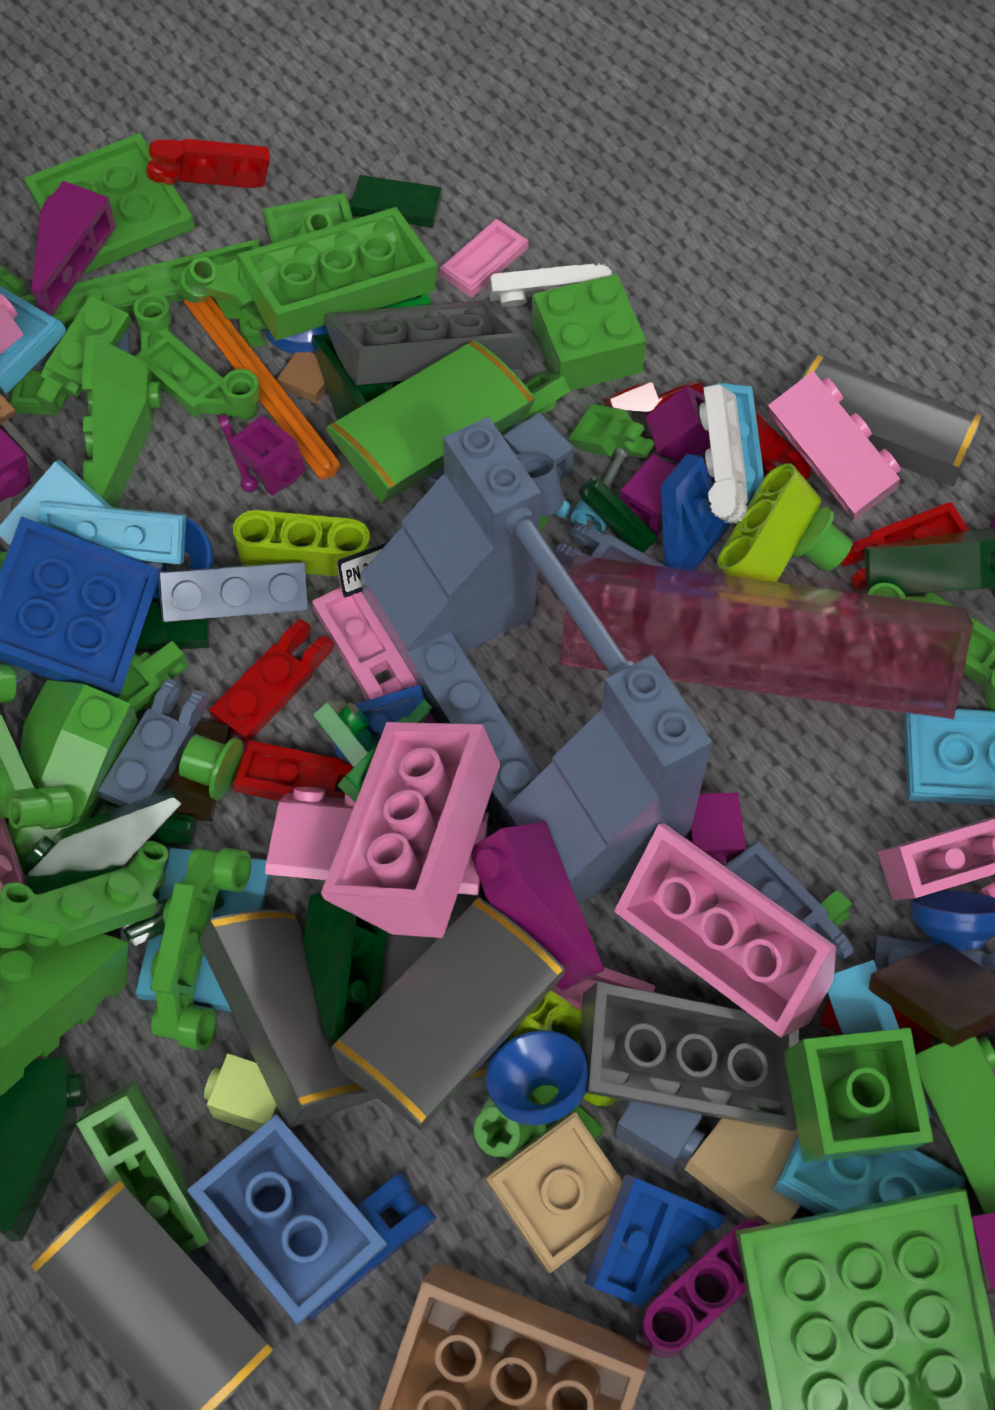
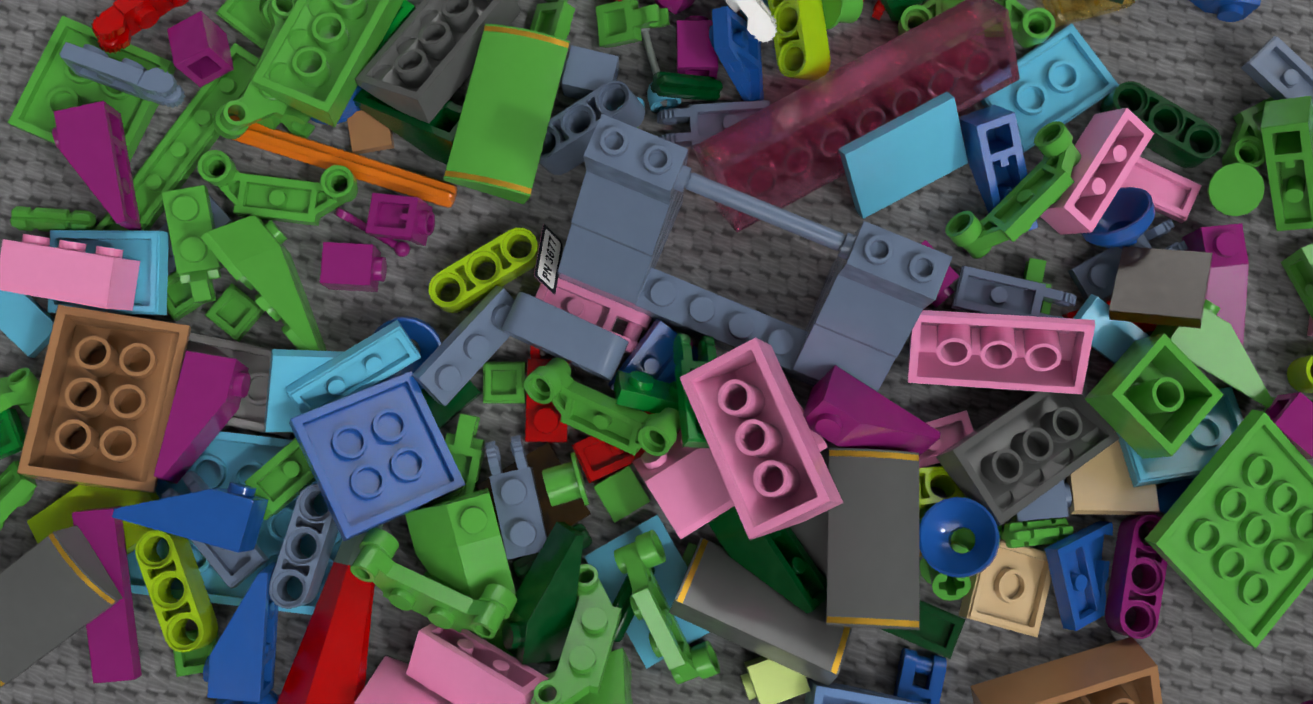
camera: 40 degrees left, 20 degrees up
(62, 436) = (235, 312): none -> bright green tile
(144, 199) = (123, 76): none -> sand blue hinge
(191, 463) = (352, 267): none -> magenta brick
(223, 221) = (200, 49): none -> magenta brick
(235, 650) = (504, 383): none -> bright green tile
(251, 821) = (621, 494): none -> bright green tile
(289, 715) = (599, 414): none -> bright green plate
(321, 636) = (564, 336): none -> sand blue beam
(439, 1166) = (937, 631): none -> dark green tile
(629, 1153) = (1035, 532): none -> bright green axle
(780, 707) = (904, 155): none -> medium azure tile
(849, 833) = (1026, 201): none -> bright green plate
(869, 795) = (994, 153): none -> blue slope

